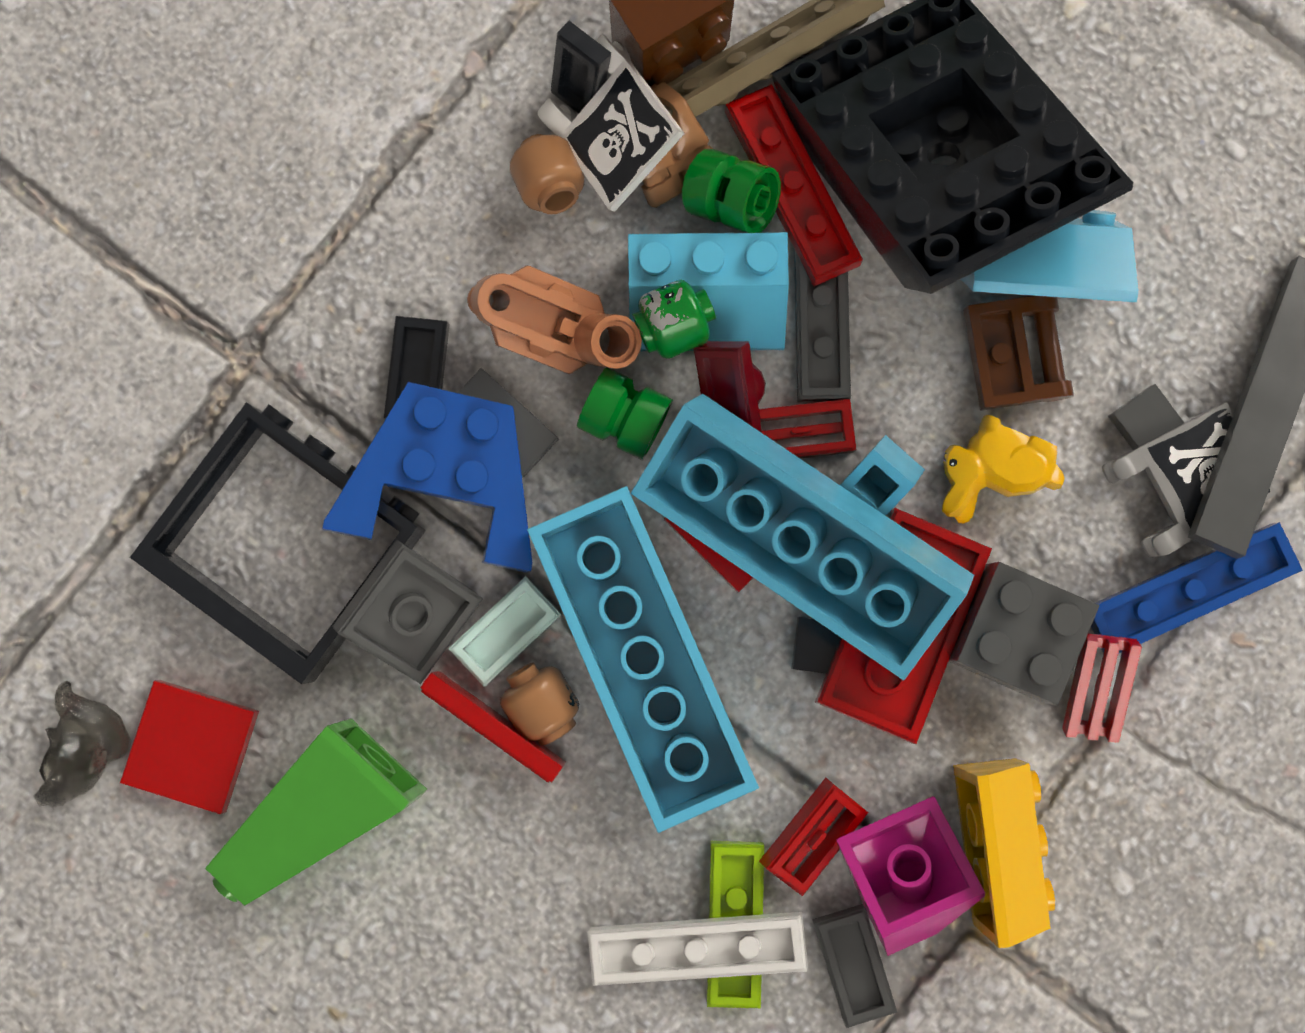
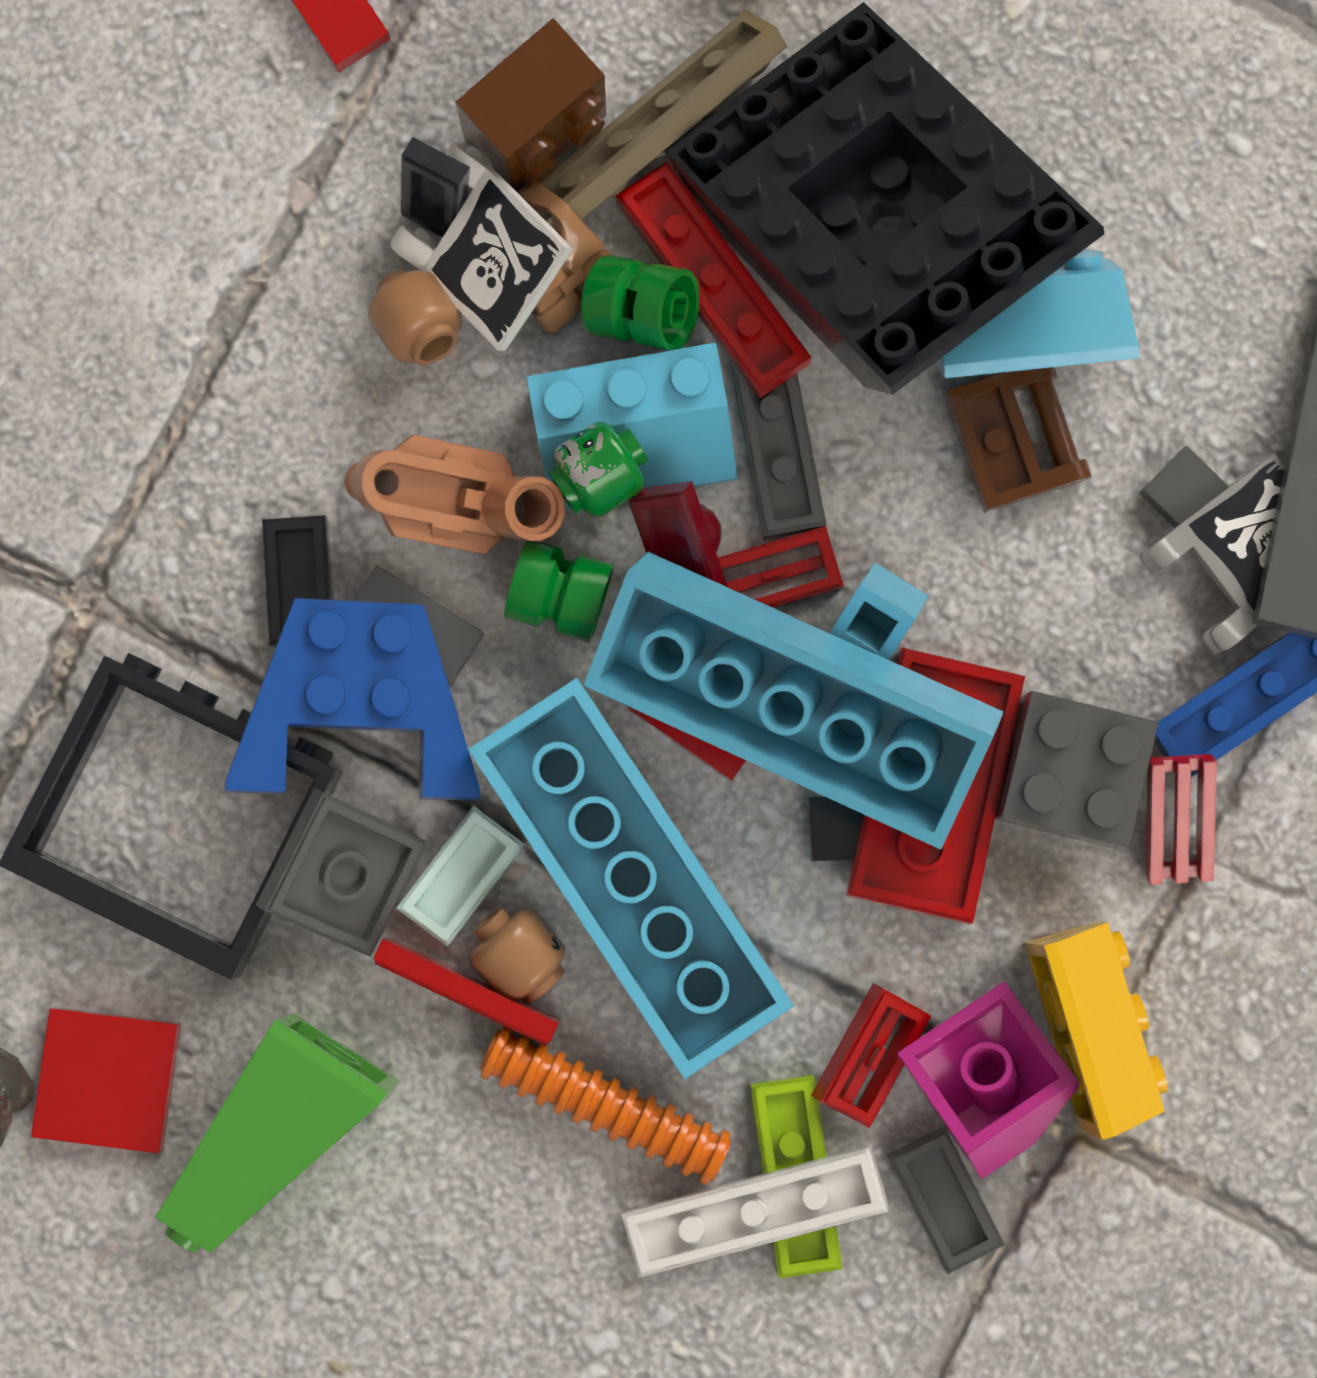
camera: 15 degrees left, 0 degrees up
(591, 840) = (606, 1105): none -> orange piece
(997, 460) = (1018, 571): yellow animal -> none

